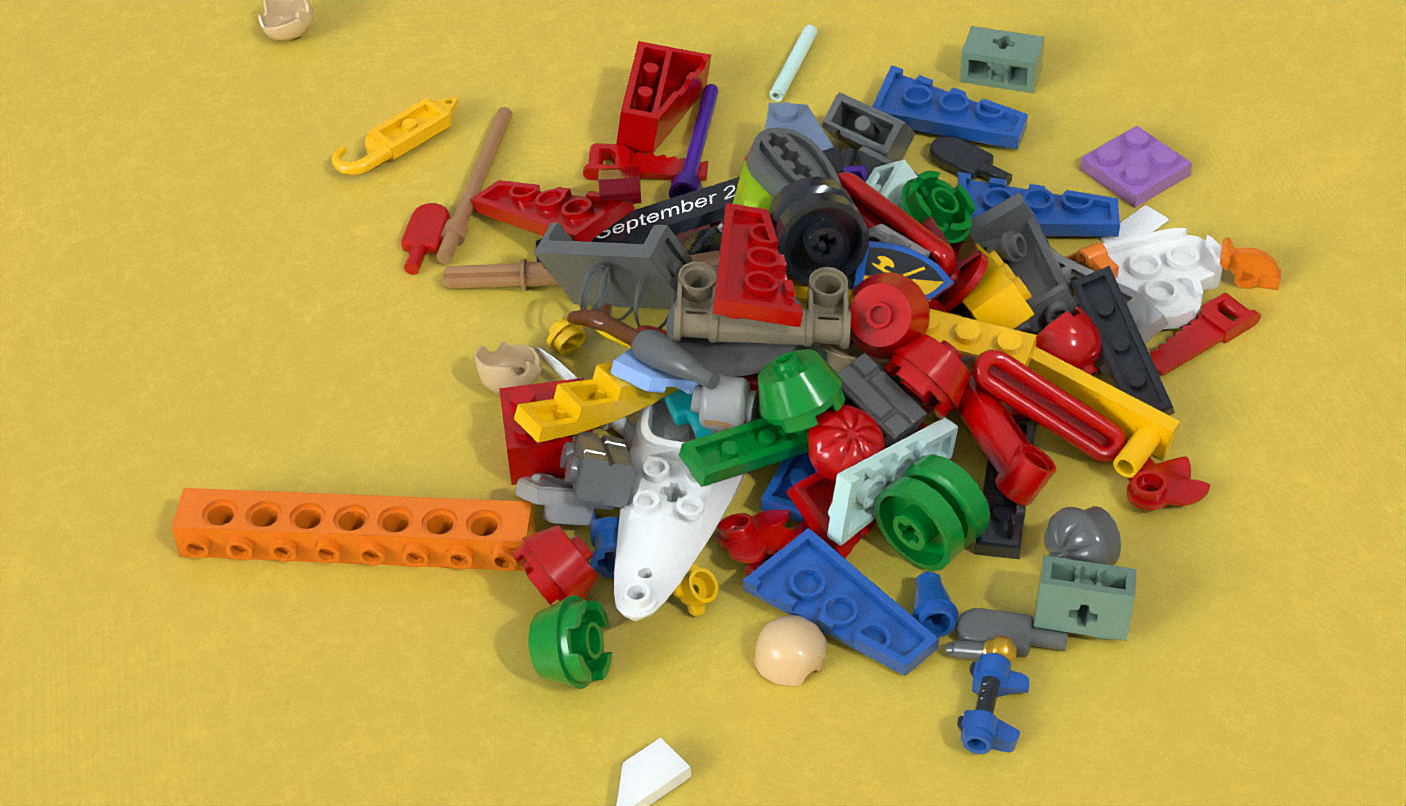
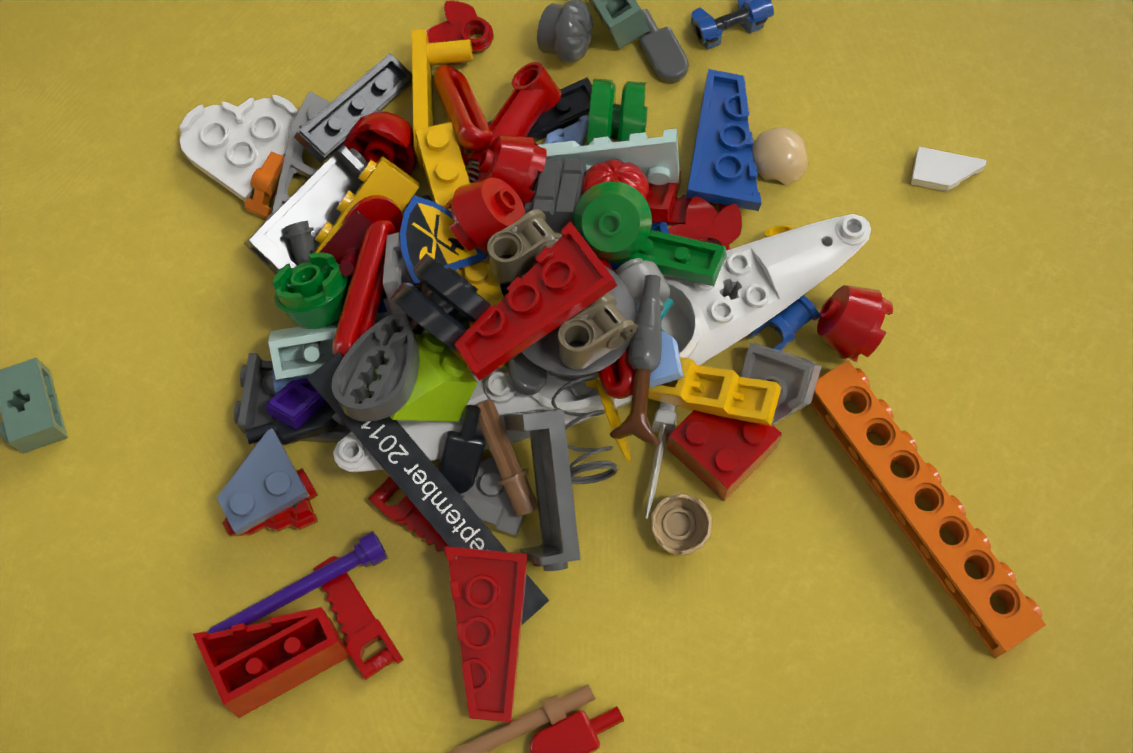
camera: 125 degrees left, 25 degrees up
(498, 275) = (578, 622): medium nougat axle -> none
(565, 336) = (611, 511): yellow plate -> none
(569, 642) = (903, 270): green cone -> none
(598, 468) = (754, 344): dark grey brick -> none
(620, 184) = (431, 571): dark red slope -> none
(793, 63) = (127, 590): light aqua piece -> none
(867, 126) = (206, 441): dark grey brick -> none
(934, 605) = (678, 94): blue cone -> none
(949, 113) = (130, 414): blue wing -> none
(961, 156) = (182, 361): black piece -> none
(975, 649) = (687, 36): piece -> none
(1058, 215) = (226, 279): blue wing -> none
(1136, 166) = (111, 234): medium lavender plate -> none
(1141, 222) = (188, 198): white sticker -> none
(1204, 332) = (281, 84): red piece -> none
(1250, 266) = (197, 89): orange piece -> none

